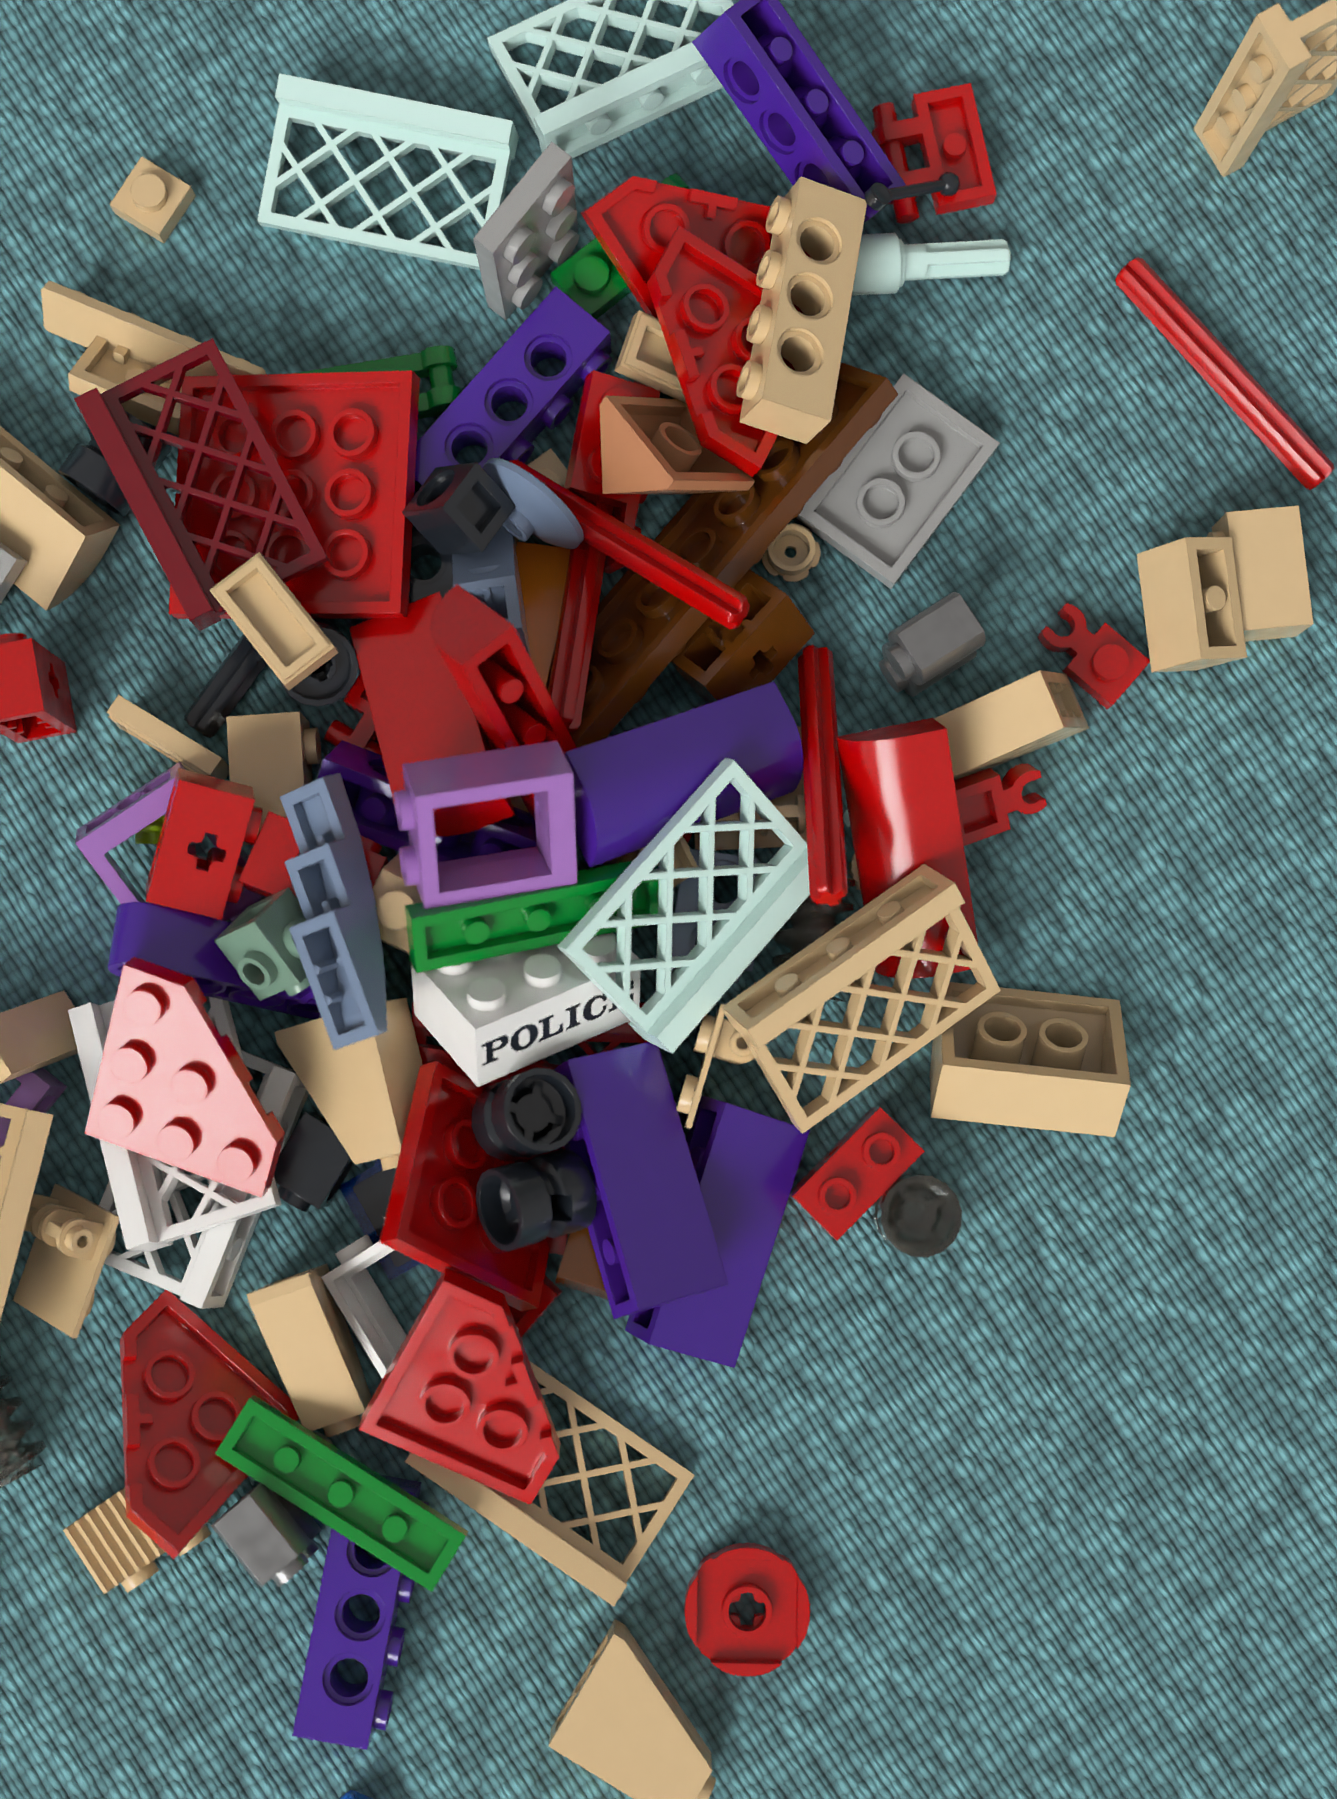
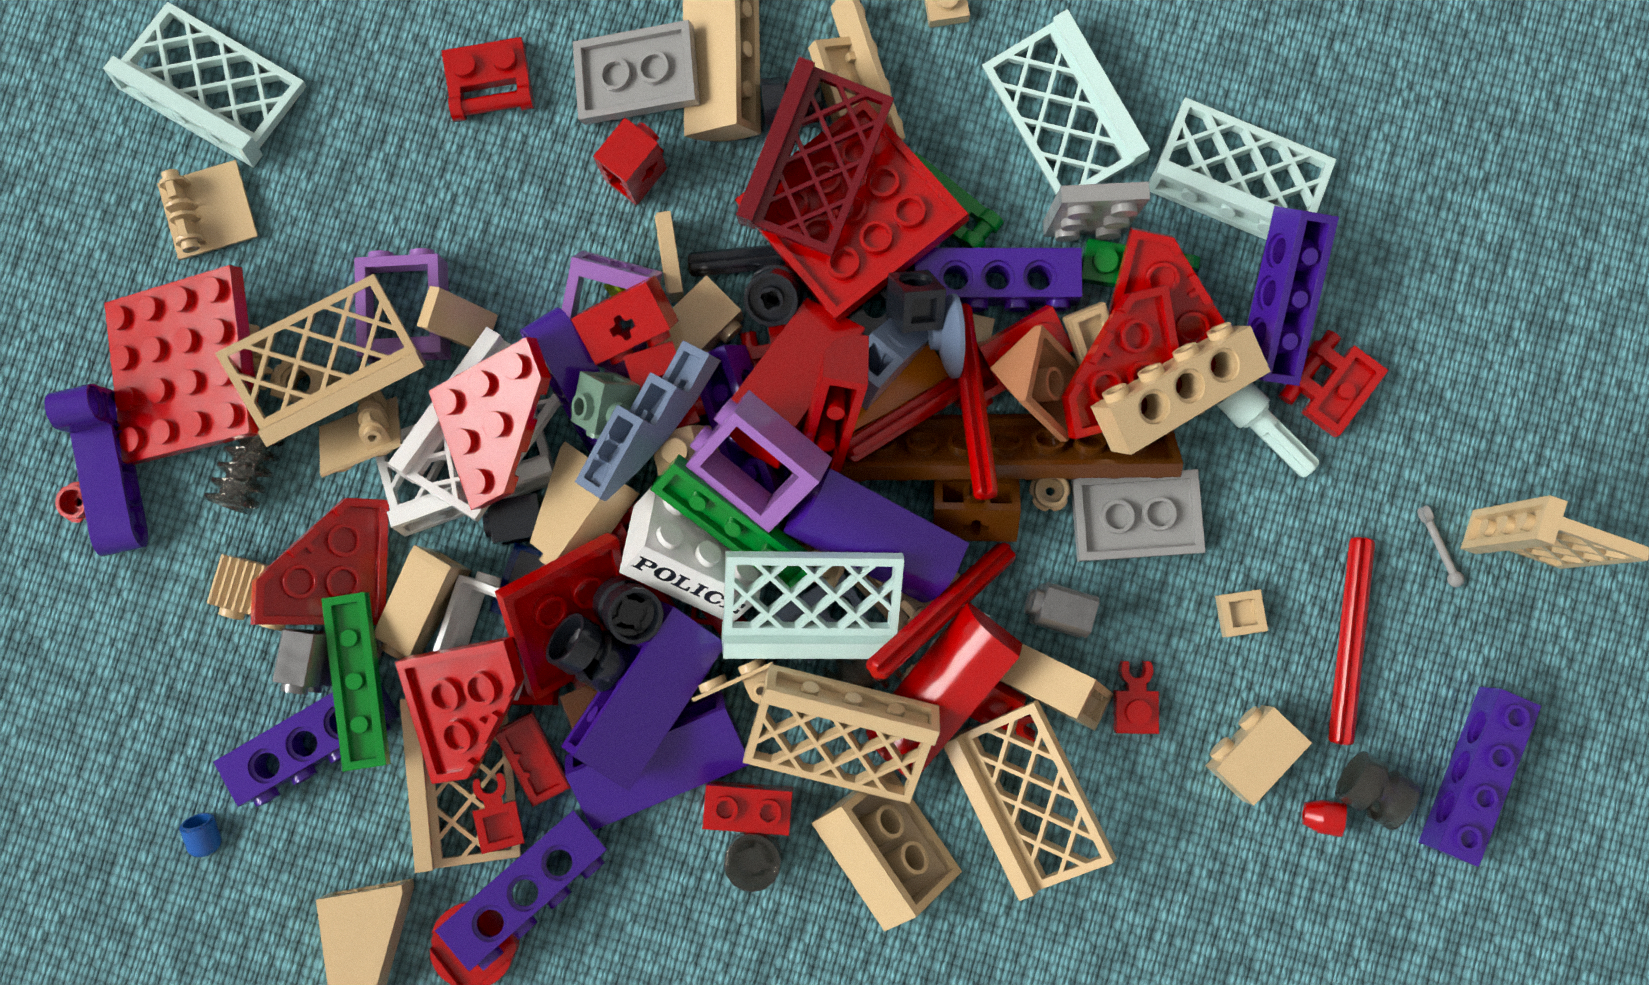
camera: 55 degrees right, 0 degrees up
(274, 621) = (773, 257): tan tile -> none
(598, 1369) = (532, 758): none -> red plate
(634, 1466) = (499, 821): none -> red plate
(720, 1603) = (462, 929): none -> dark purple brick
(879, 196) = (1278, 375): black hinge -> none
(1095, 907) = (1002, 821): none -> tan fence
(1096, 462) = (1241, 613): none -> tan plate
(1159, 181) = (1455, 577): none -> light grey hinge
(1191, 604) = (1207, 730): tan brick -> none

